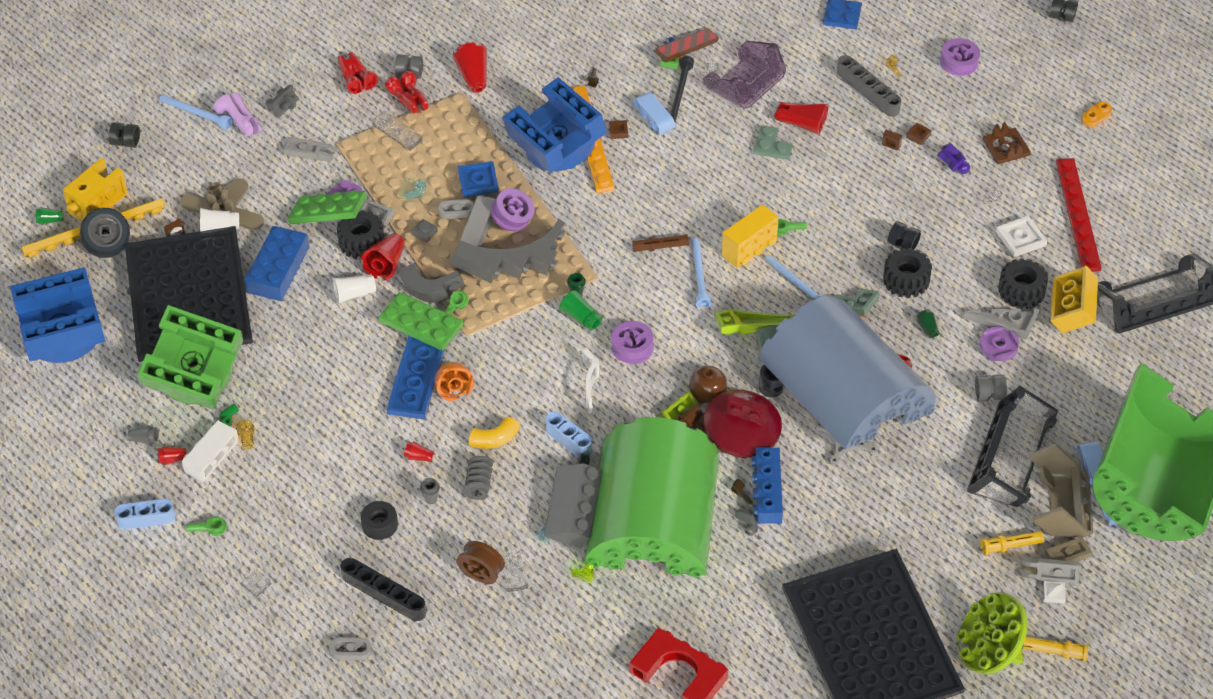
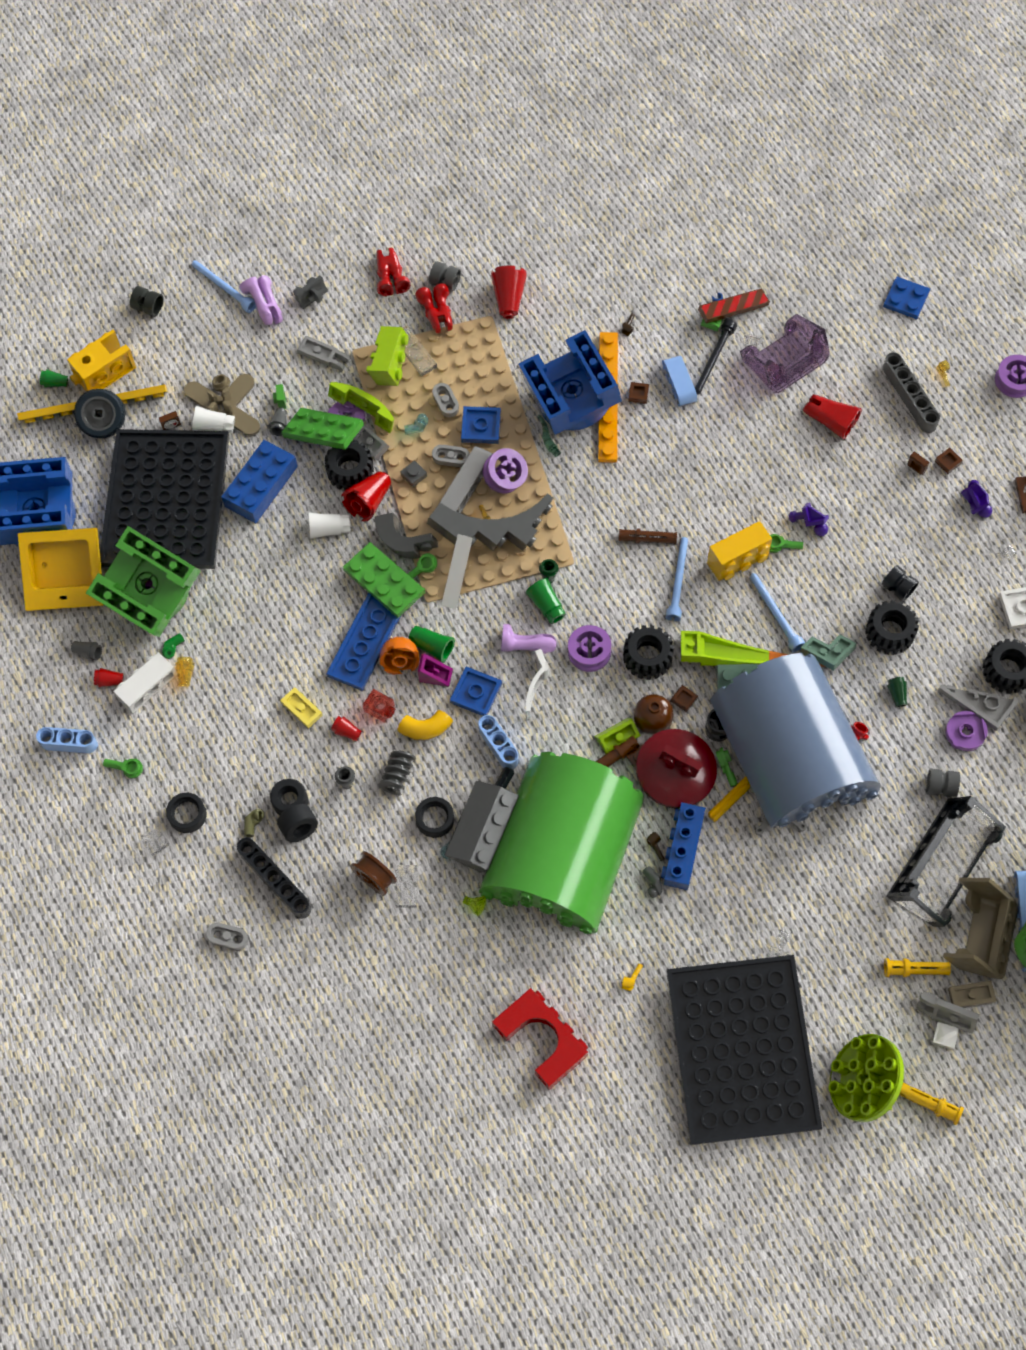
camera: 15 degrees right, 15 degrees up
(101, 364) = (58, 566): none -> yellow piece
(277, 191) = (279, 396): none -> bright green plate
(281, 213) = (278, 422): none -> dark grey cone
(285, 564) = (187, 827): none -> black tyre
(348, 546) = (251, 821): none -> olive arm
(361, 178) = (343, 392): none -> lime slope
(369, 443) = (301, 707): none -> light yellow plate
(375, 136) = (389, 356): none -> lime wedge
(393, 537) = (297, 823): none -> black tyre
(441, 167) = (445, 401): none -> light grey plate
(445, 426) = (376, 698): none -> clear red brick
(483, 365) = (432, 642): none -> green plant
(489, 388) = (433, 671): none -> magenta slope
(490, 300) = (457, 571): none -> white sticker
(525, 495) = (431, 802): none -> black tyre
(534, 398) = (476, 691): none -> blue plate
(547, 186) = (548, 442): none -> clear green animal
(556, 350) = (513, 641): none -> lavender piece
(688, 345) = (646, 666): none -> black tyre
(733, 367) = (684, 698): none -> reddish brown tile
(749, 609) = (628, 983): none -> yellow hand
(768, 146) = (788, 444): sand green plate -> none
(784, 408) = (724, 758): none -> bright green plate
(800, 439) = (732, 797): none -> yellow axle
(808, 198) = (811, 518): none -> dark purple piece

